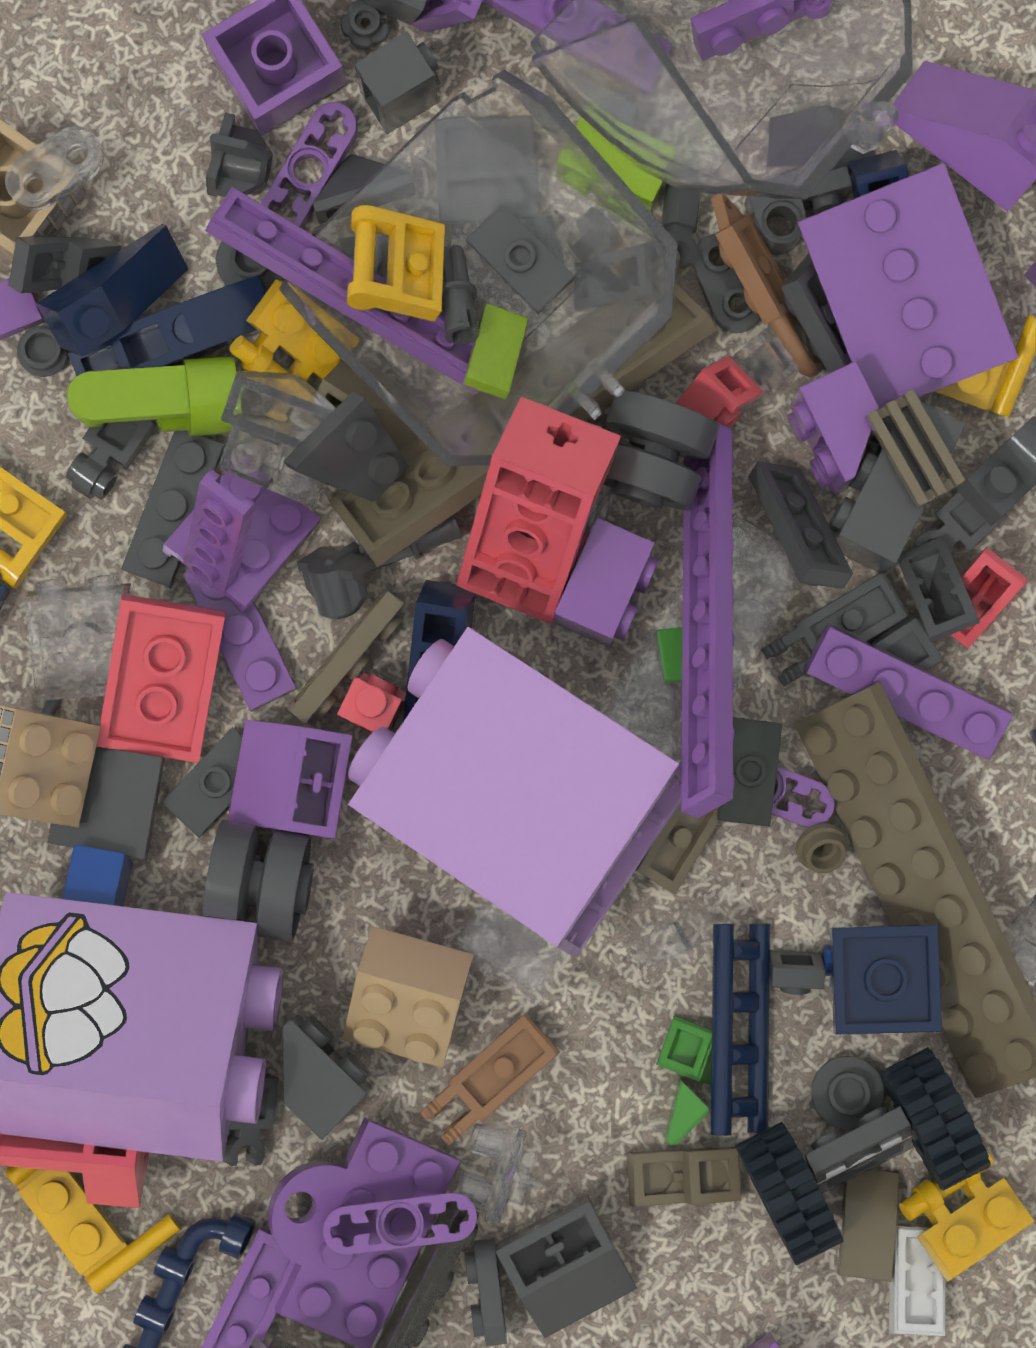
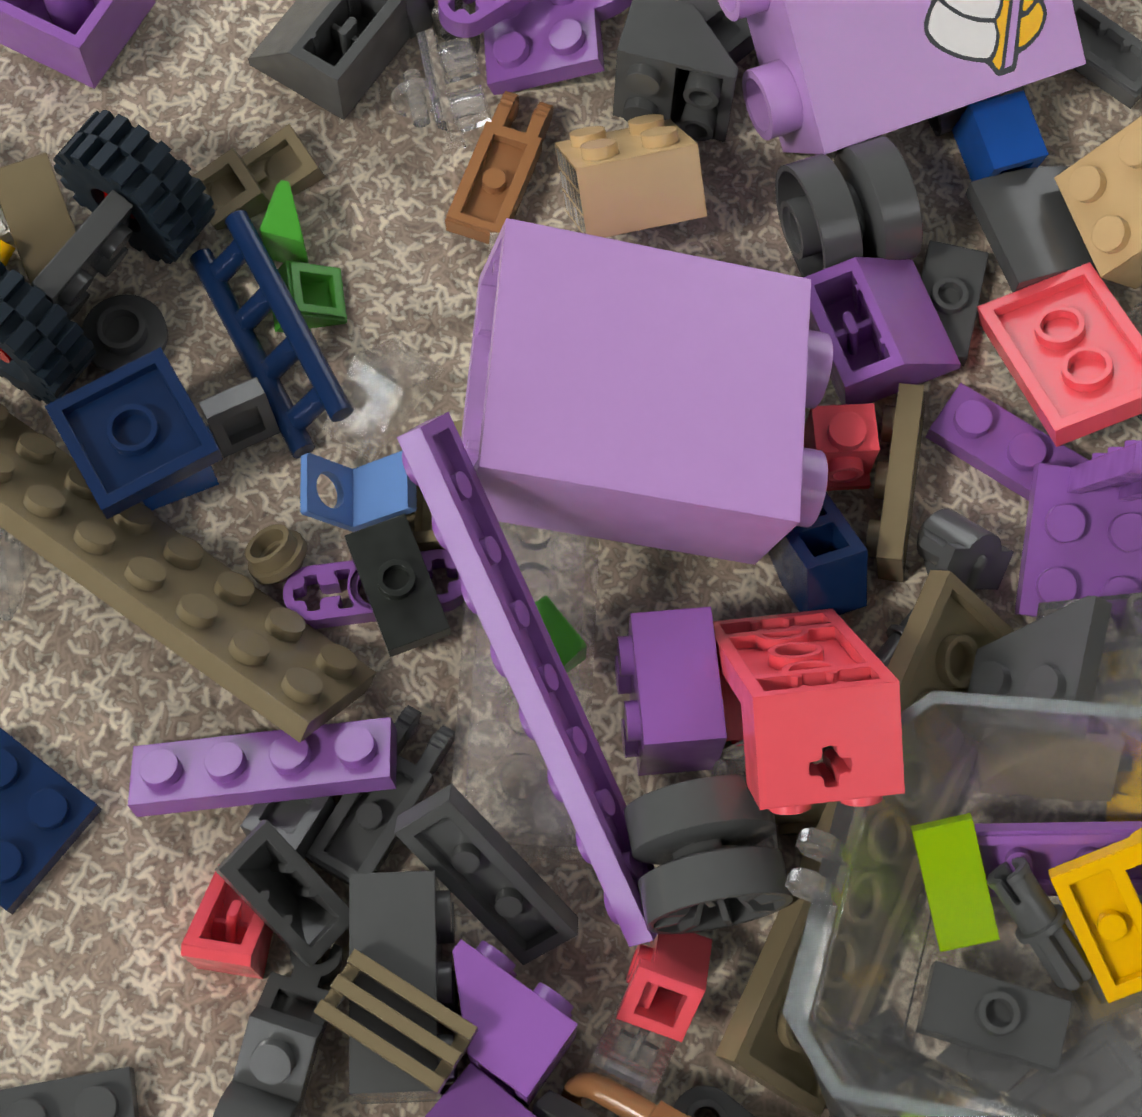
camera: 145 degrees right, 15 degrees down
(733, 861) = (363, 493): none -> medium blue bracket

